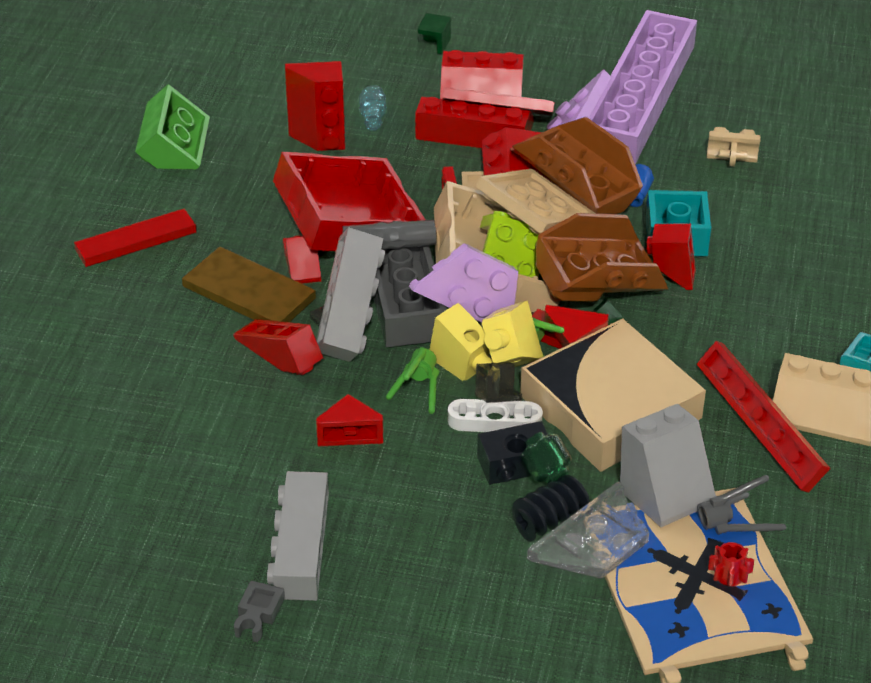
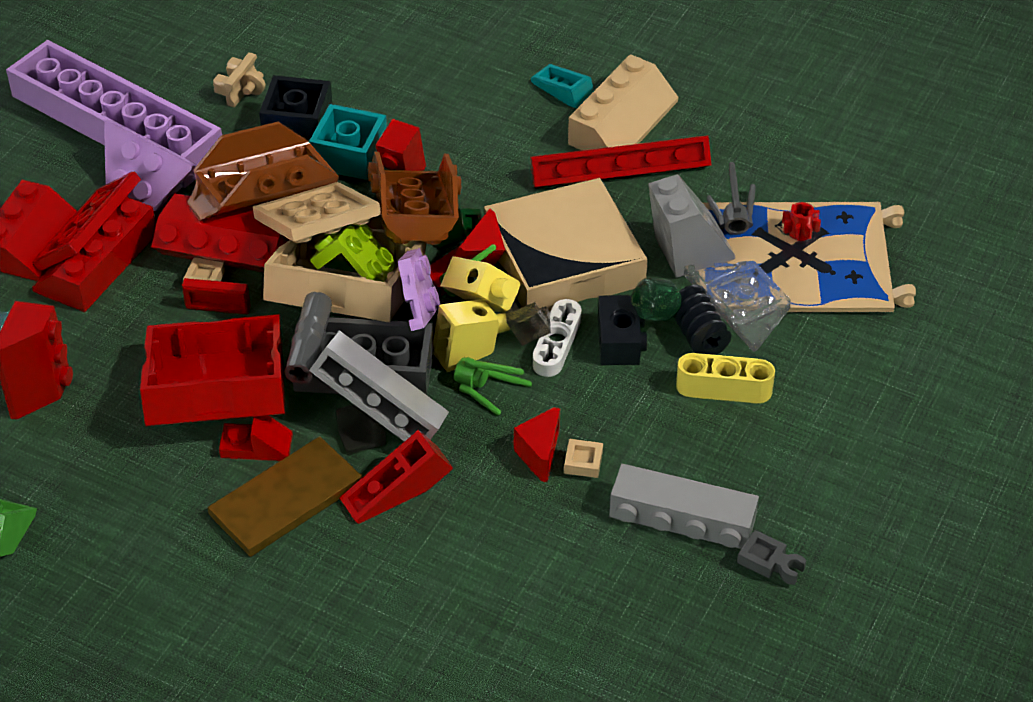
camera: 75 degrees left, 5 degrees up
(135, 237) = (147, 588): red tile -> none
(343, 457) = (583, 458): none -> tan plate
(480, 541) = (725, 378): none -> light yellow beam
(706, 172) = (296, 103): none -> black brick

